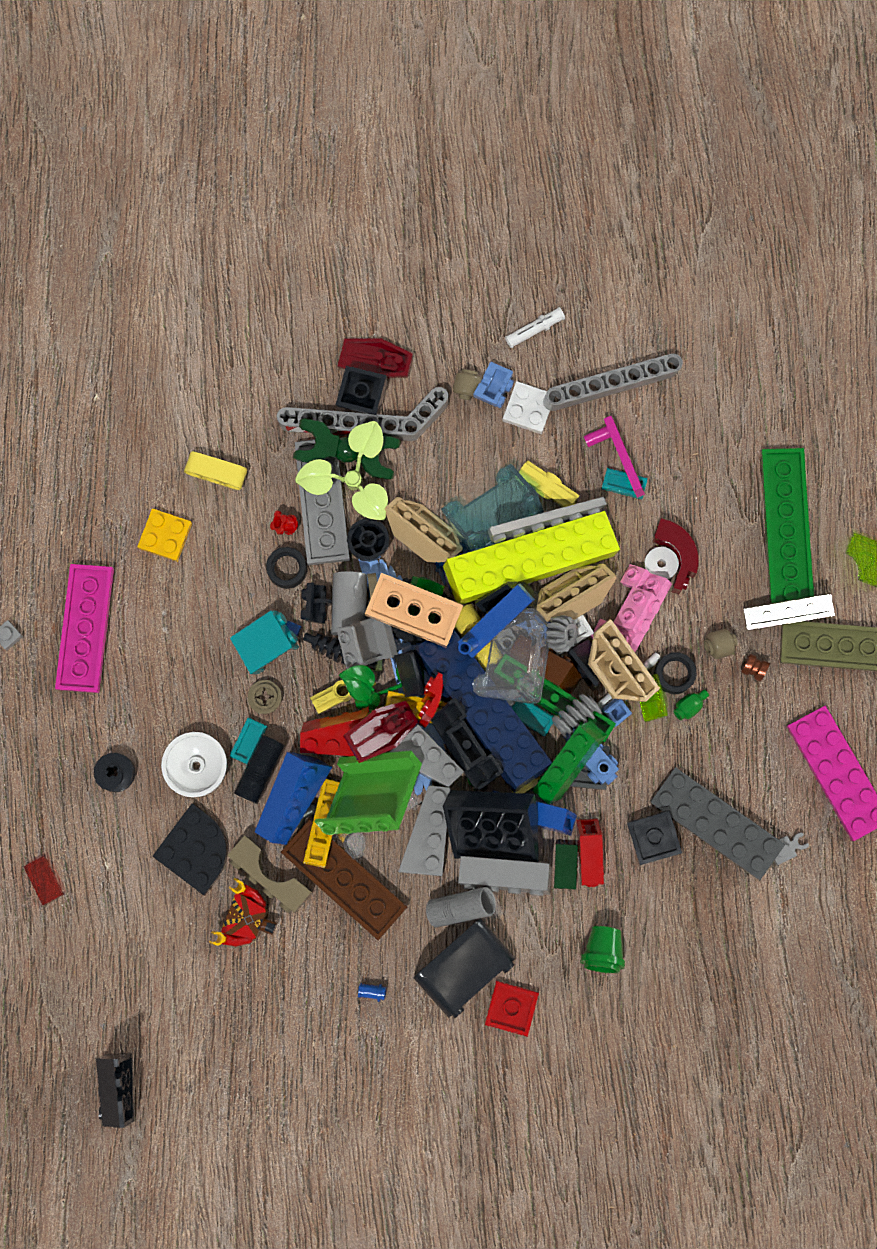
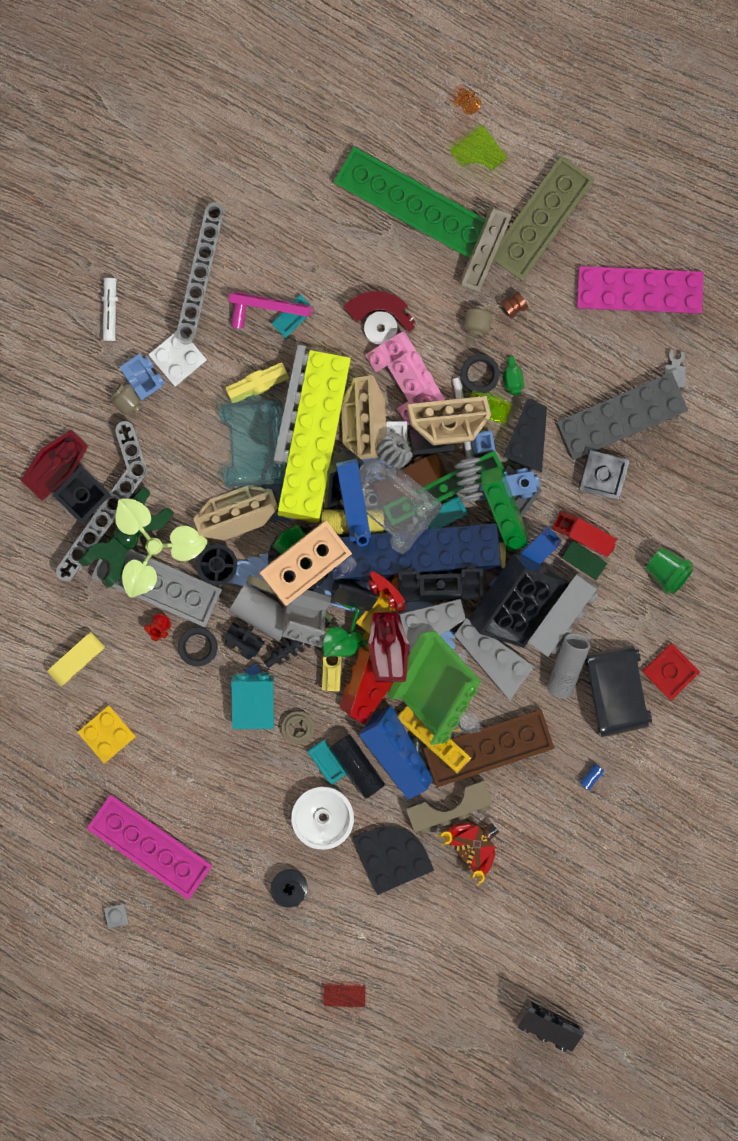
camera: 65 degrees left, 10 degrees up
(645, 748) = (528, 438): none -> black wedge

